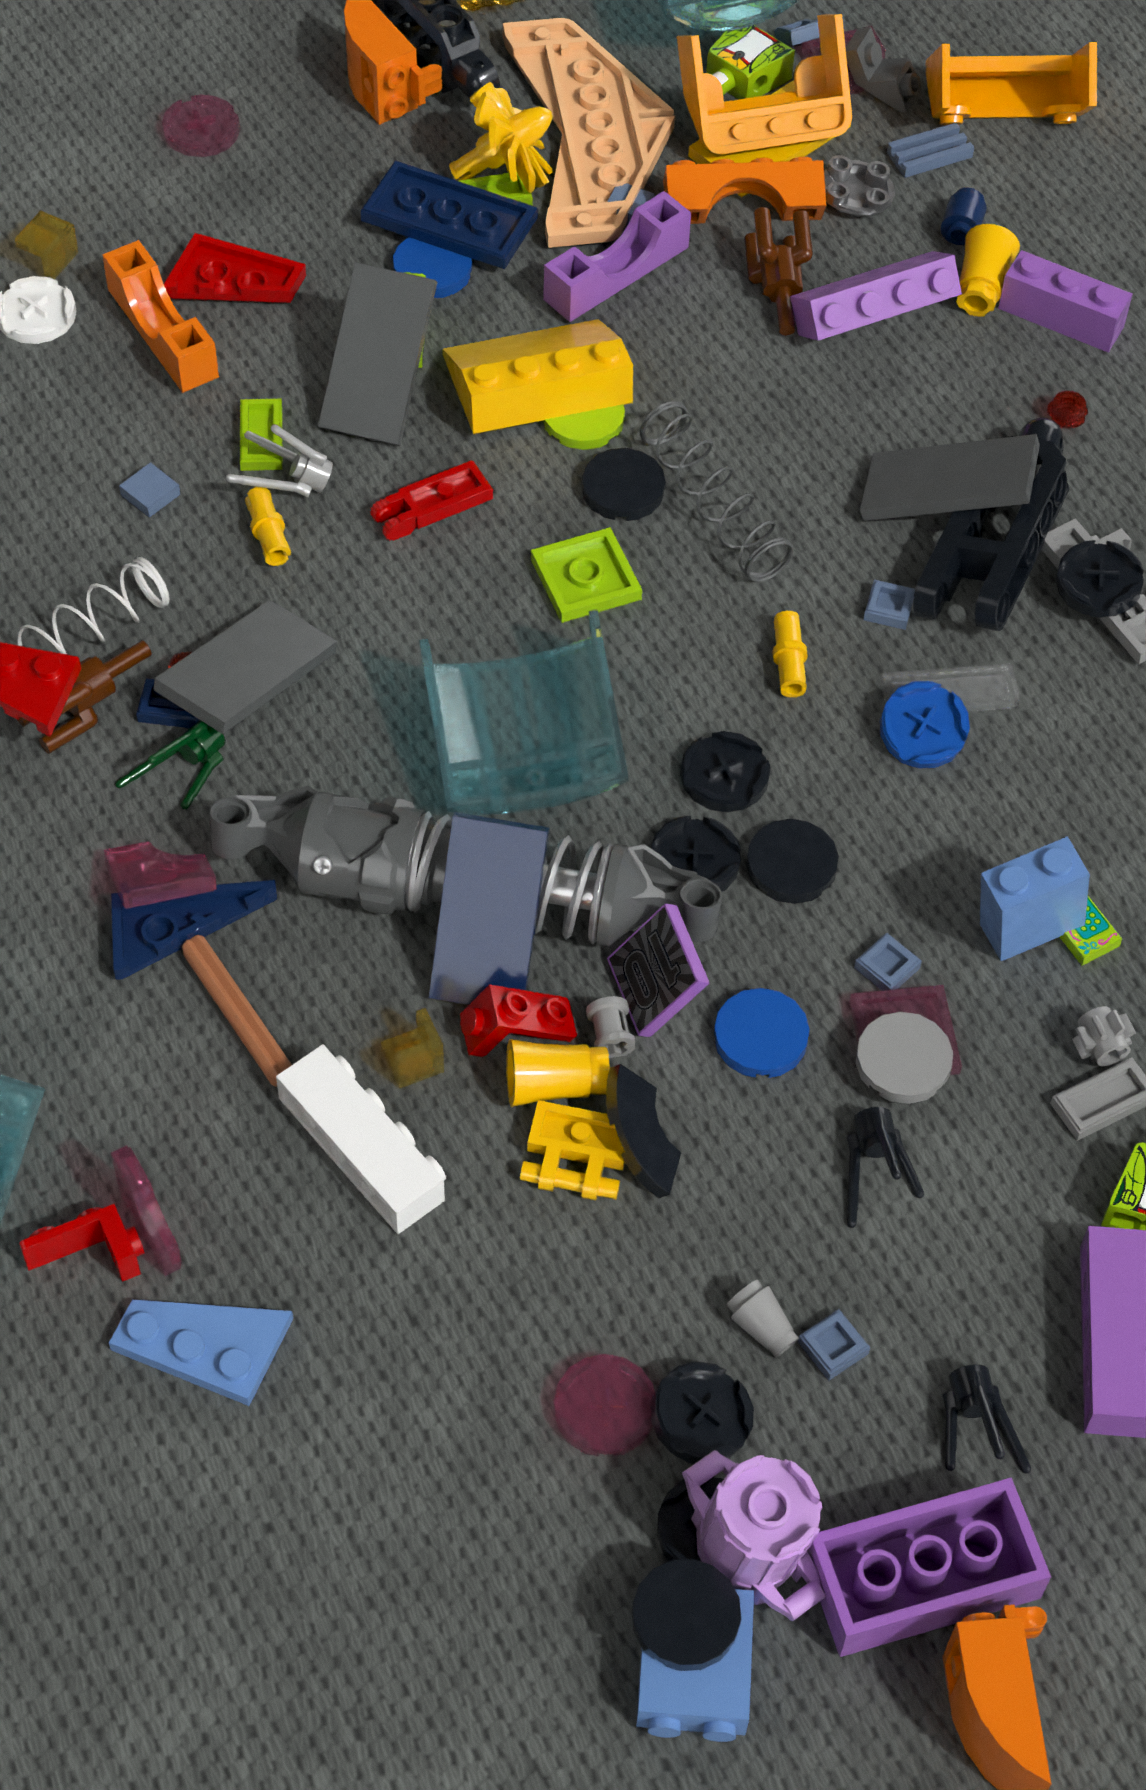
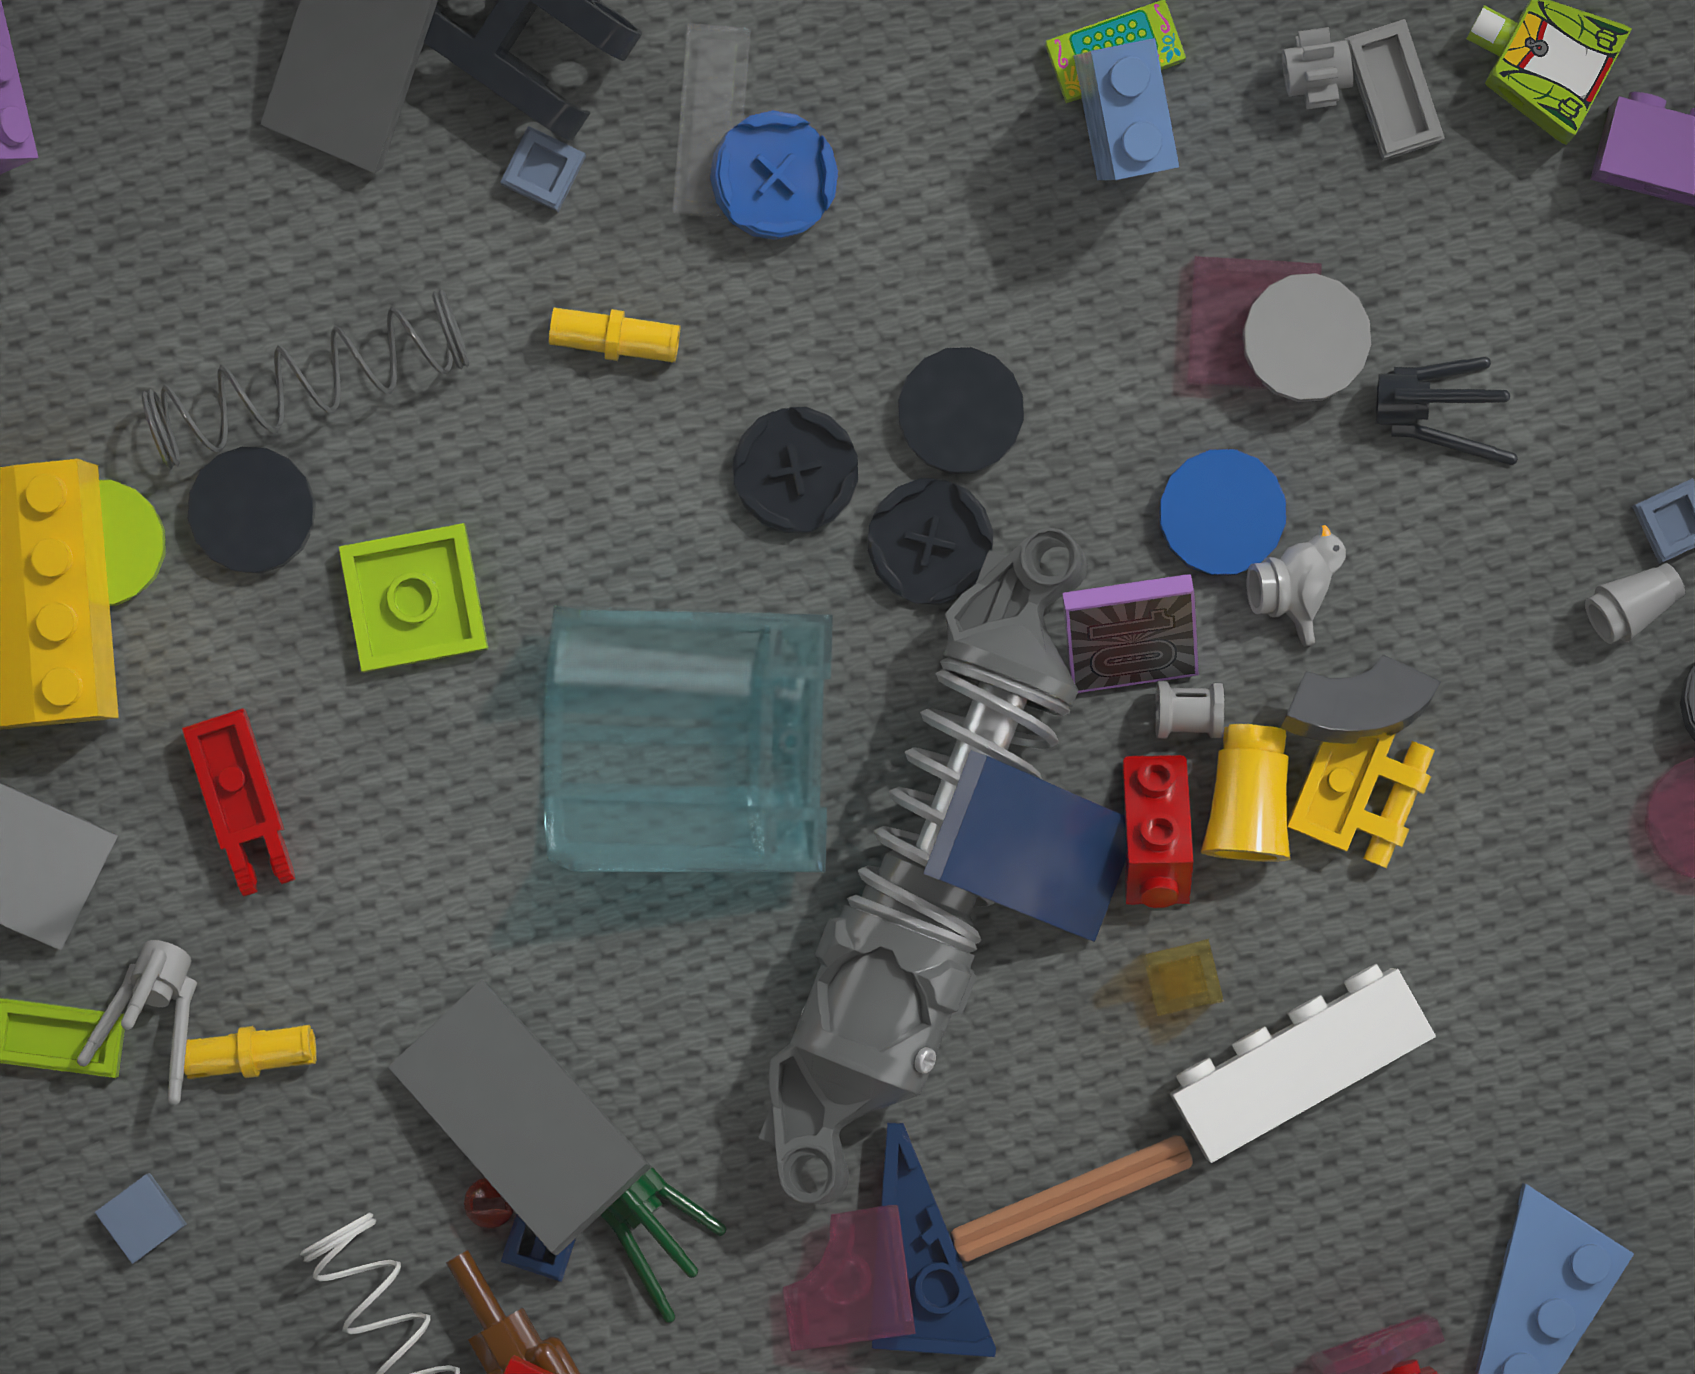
camera: 75 degrees left, 30 degrees up
(722, 1081) = (1296, 581): none -> light grey animal
(887, 963) = (1144, 320): sand blue tile -> none

